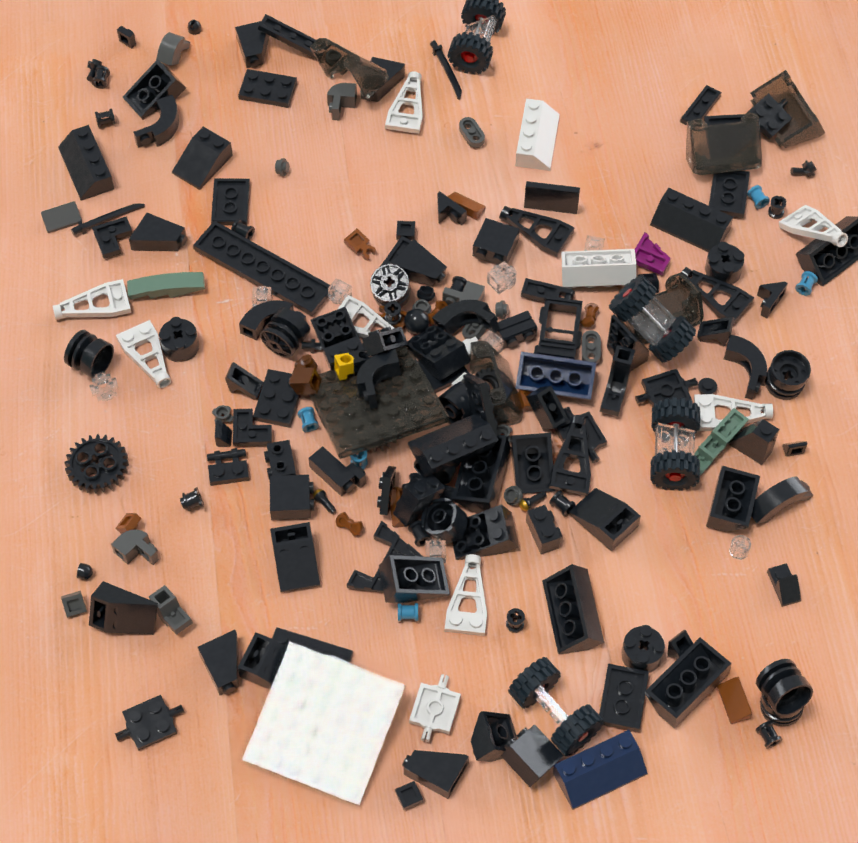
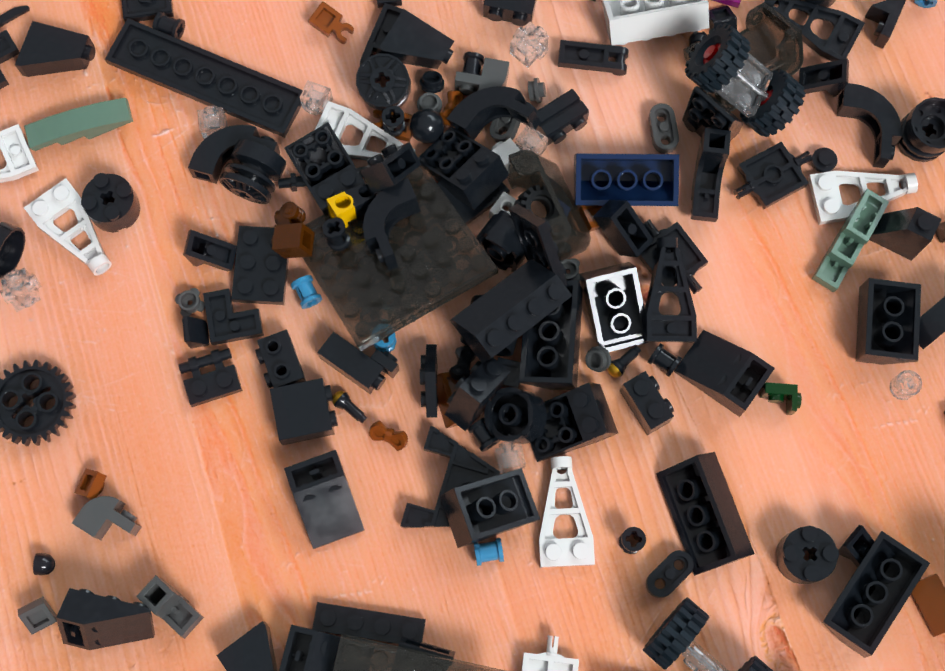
camera: 10 degrees left, 15 degrees up
(191, 499) = (170, 435): black brick -> none
(337, 383) = (338, 231): none -> black bush
(537, 647) = (668, 574): none -> black plate
(555, 347) = (617, 137): black piece -> none
(589, 319) = (654, 72): dark orange piece -> none
(623, 697) = (791, 626): black plate -> none
(645, 537) = (779, 392): none -> dark green bracket
(675, 430) = (800, 254): black plate -> none

